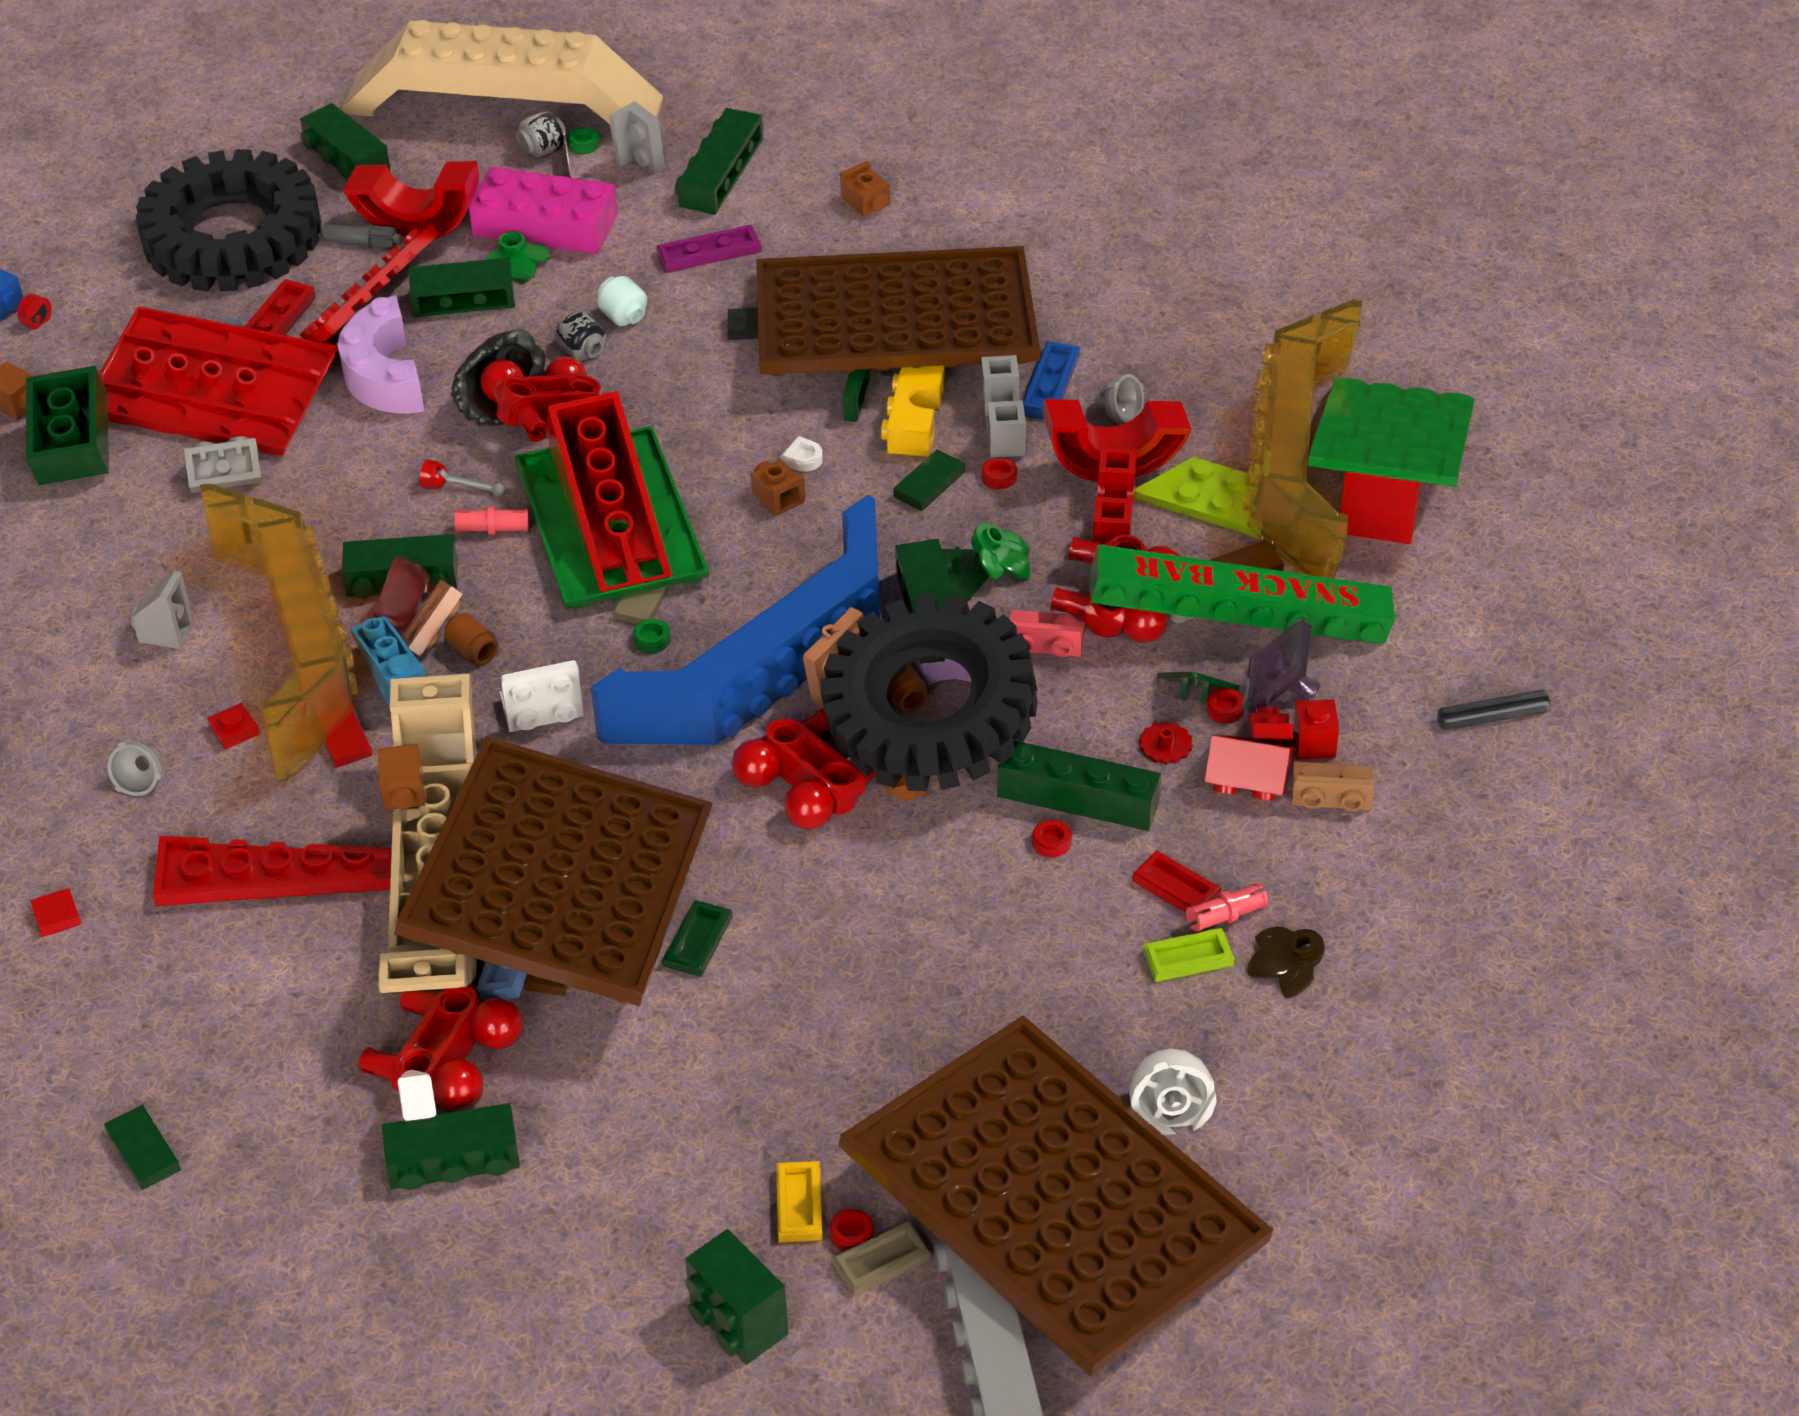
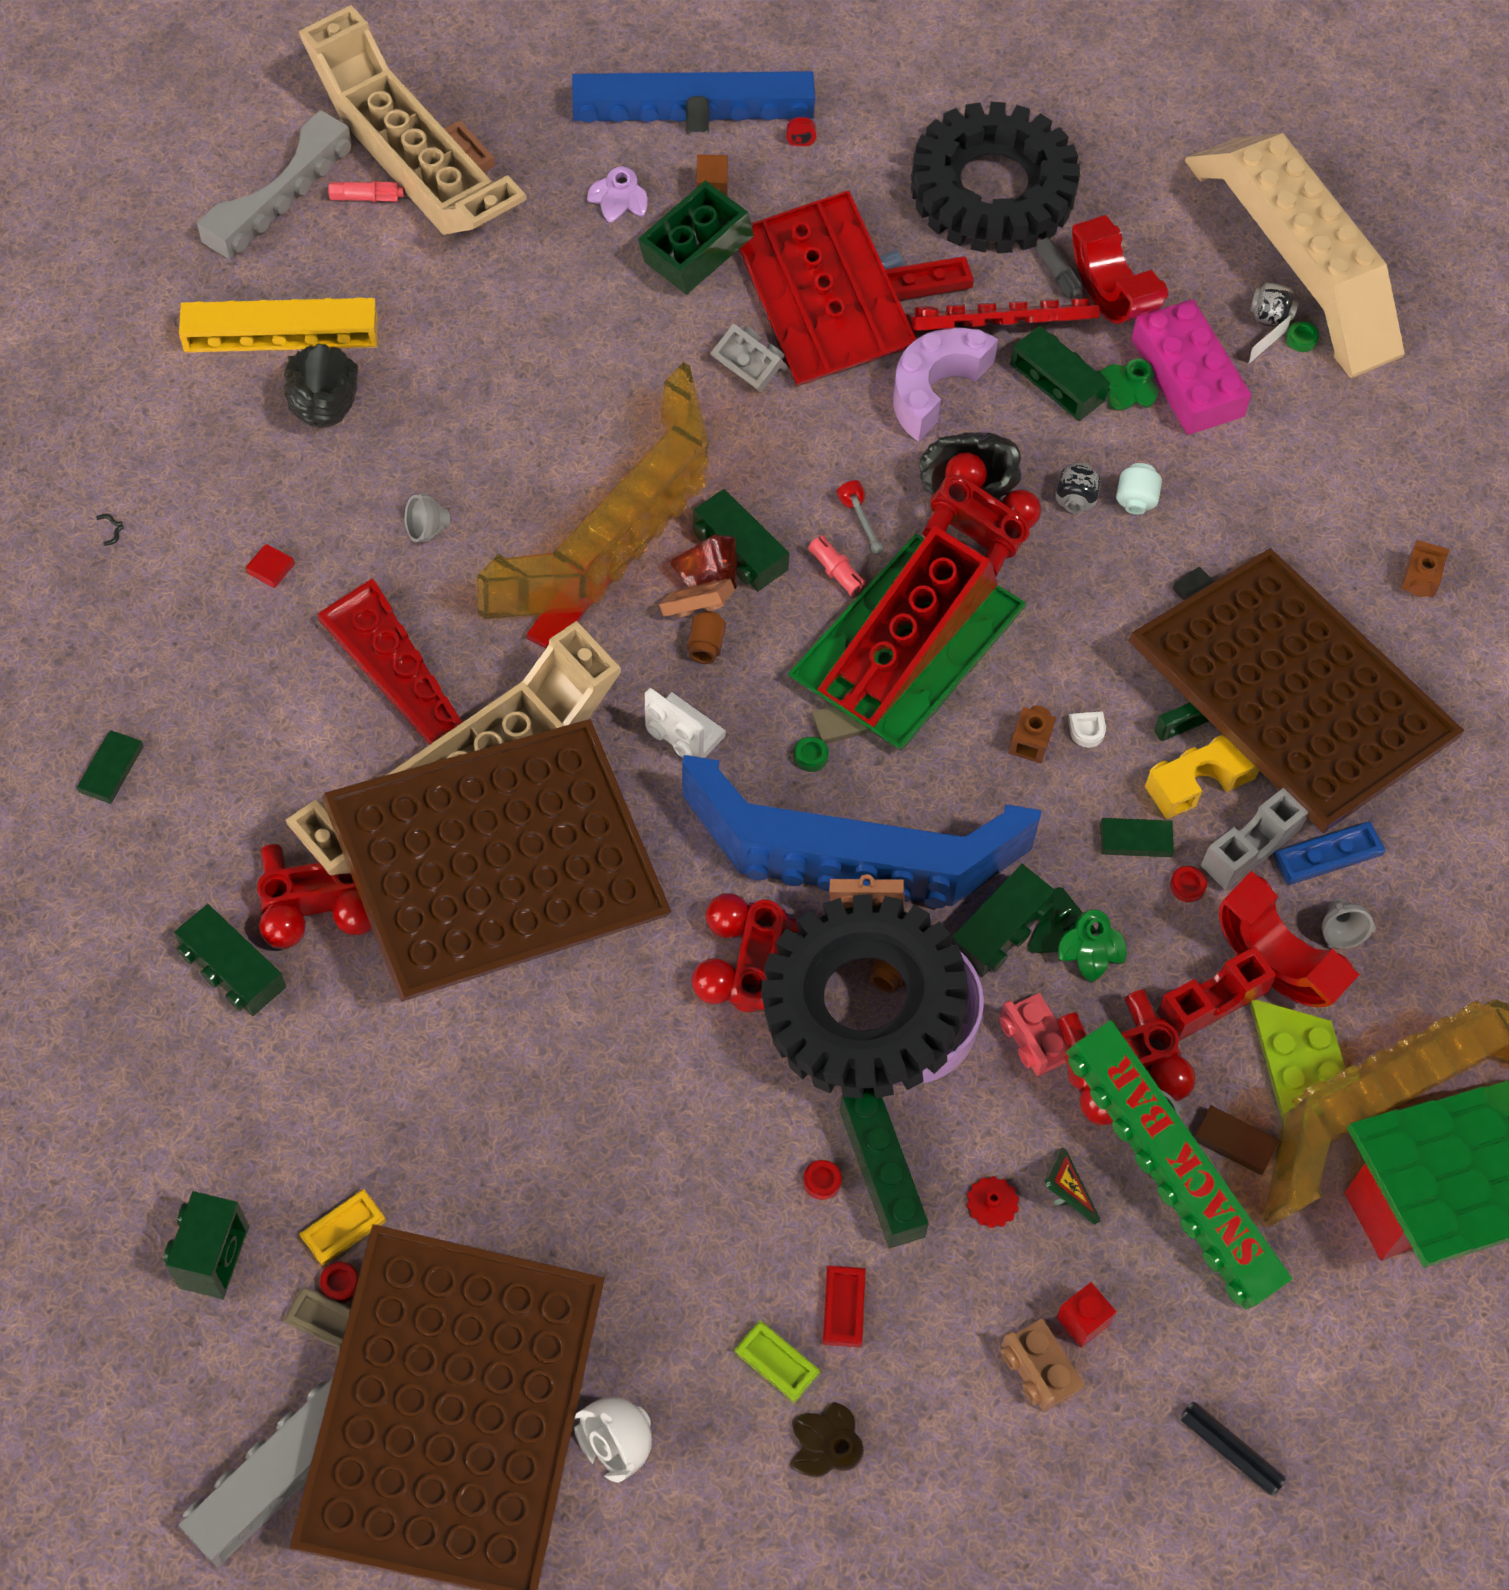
camera: 50 degrees right, 15 degrees up
(164, 613) = (571, 431): light grey slope -> none
(233, 726) = (513, 544): red plate -> none
(341, 140) = (1142, 187): dark green brick -> none
(385, 653) = (636, 606): dark azure slope -> none
(401, 777) = (502, 693): dark orange brick -> none
(416, 1095) = (239, 906): white slope -> none
(637, 137) = (1321, 370): light grey bracket -> none
(697, 938) = (538, 990): dark green tile -> none
(708, 248) = (1259, 506): magenta tile -> none
(719, 161) = (1361, 445): dark green brick -> none
(1225, 705) = (1067, 1224): red tile -> none
(1226, 907) = (842, 1362): coral pin -> none
(1249, 765) = (1010, 1283): slope -> none
(1269, 724) = (1057, 1276): red slope -> none
(1280, 668) = (1123, 1245): clear purple tile -> none

